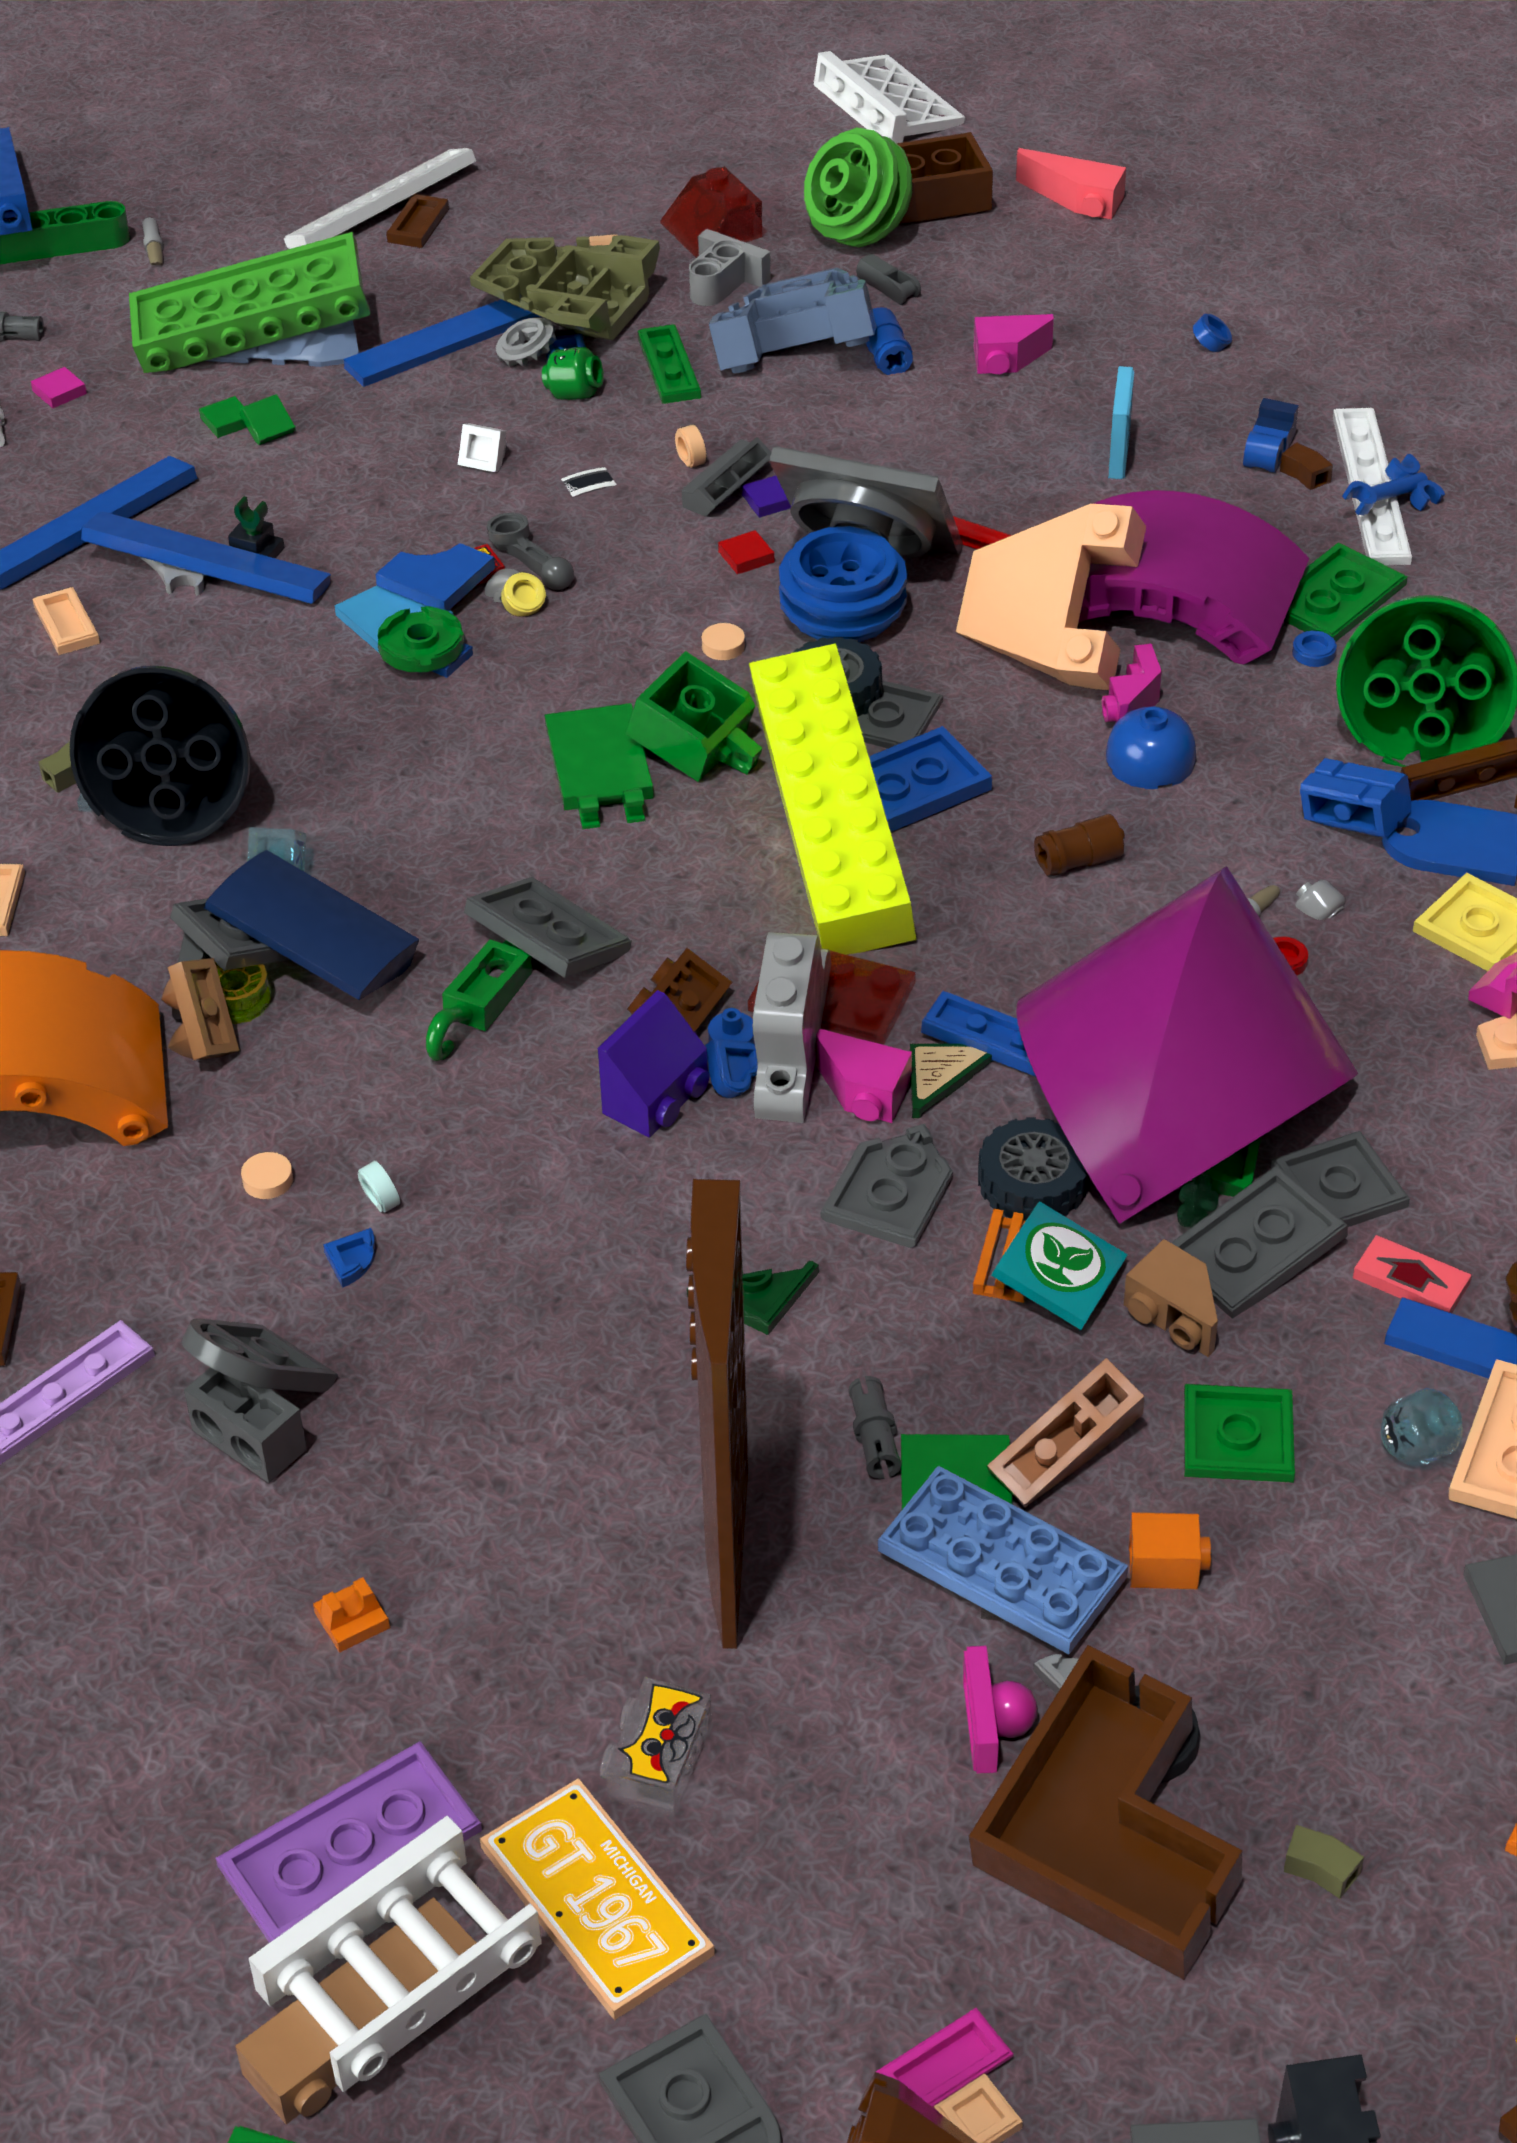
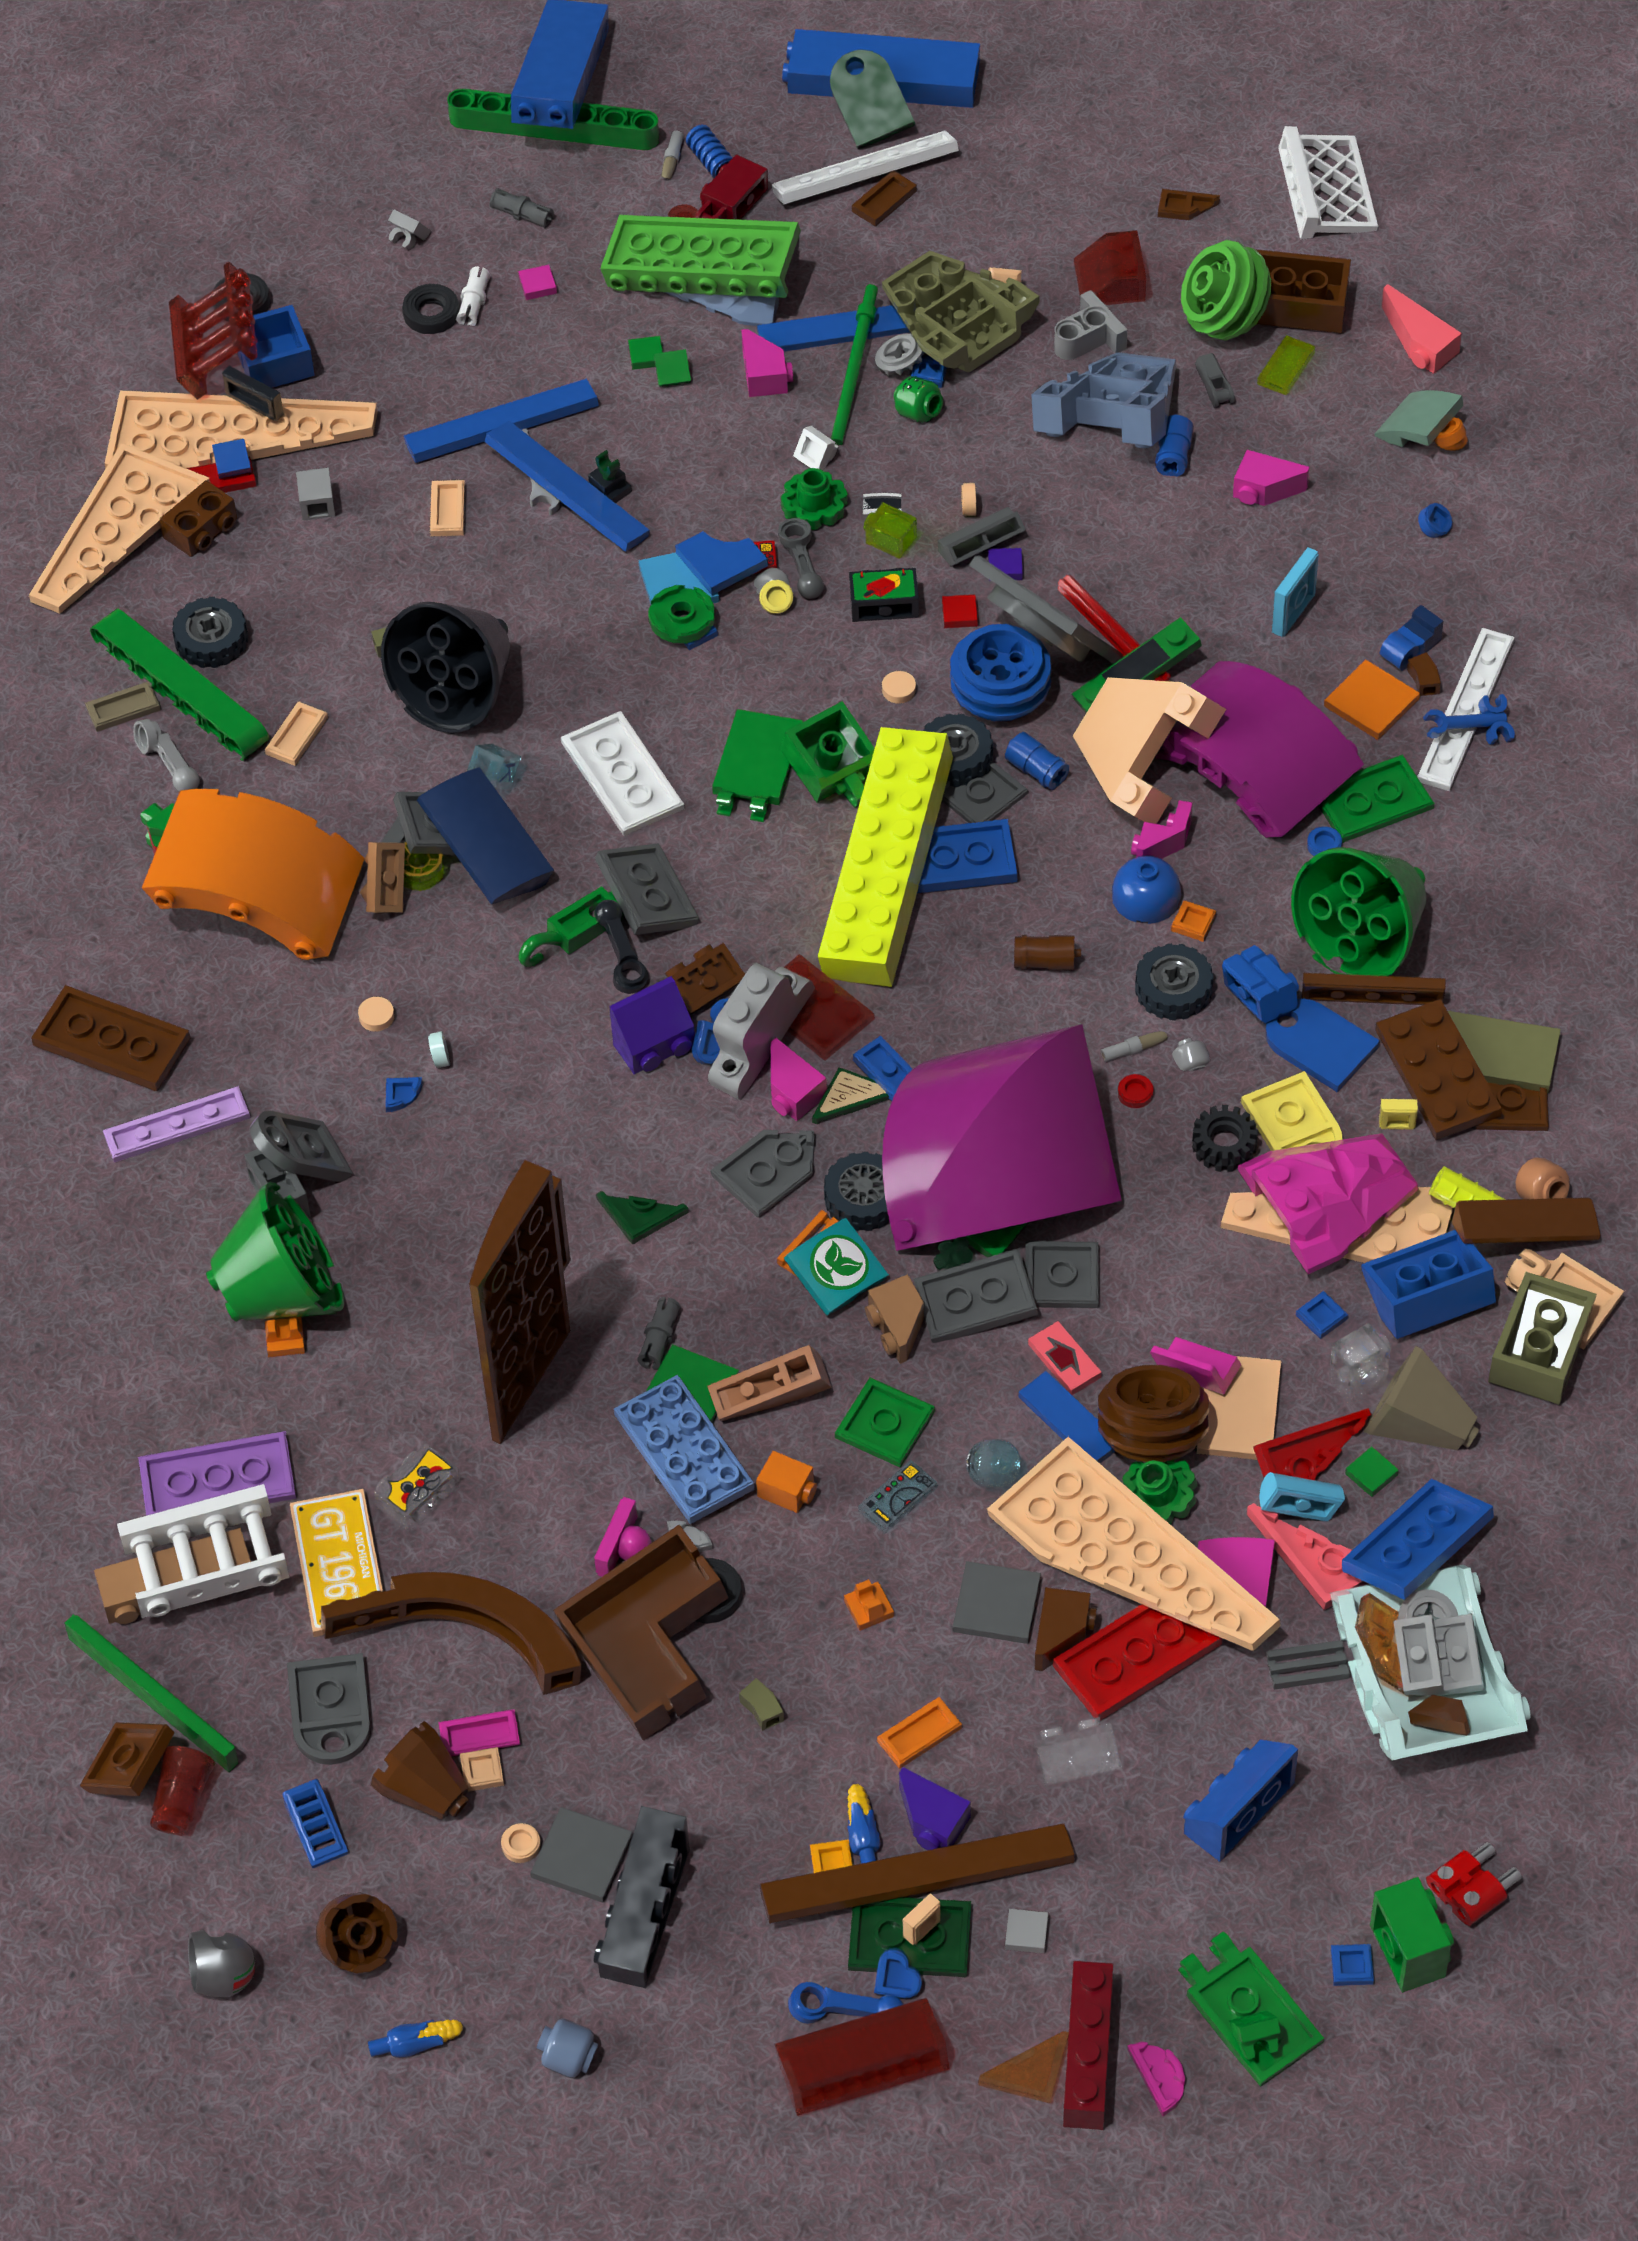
camera: 25 degrees right, 10 degrees up
(196, 225) = (707, 148): none -> blue piece
(244, 240) = (733, 190): none -> dark red brick
(297, 1518) = (274, 1263): none -> green cone
(348, 114) = (923, 68): none -> blue brick
(355, 136) = (869, 100): none -> tile
(375, 389) = (764, 366): none -> dark pink slope
(440, 820) = (622, 773): none -> white tile
(467, 318) = (865, 316): none -> green bar
(509, 488) = (814, 498): none -> green plant
(521, 966) = (609, 915): none -> black piece
(618, 496) = (890, 530): none -> clear neon green brick
(651, 556) = (884, 594): none -> brick
(669, 364) = (1000, 409): green tile -> none
(749, 148) = (1185, 204): none -> reddish brown tile
(843, 1874) = (470, 1602): none -> reddish brown arch
(936, 662) = (1034, 759): none -> blue piece
(953, 249) = (1286, 365): none -> clear neon green tile
(1011, 513) = (1145, 661): none -> green plate
(1131, 247) = (1420, 417): none -> sand green slope
(1174, 256) = (1452, 436): none -> orange tile
(1224, 766) = (1193, 920): none -> orange tile
(1250, 829) = (1190, 984): none -> black wheel
(1271, 498) = (1371, 699): none -> orange tile
(1318, 1518) = (897, 1497): none -> clear light blue tile
(1374, 1671) = (868, 1604): none -> orange tile
(1423, 987) = (1224, 1121): none -> black tyre

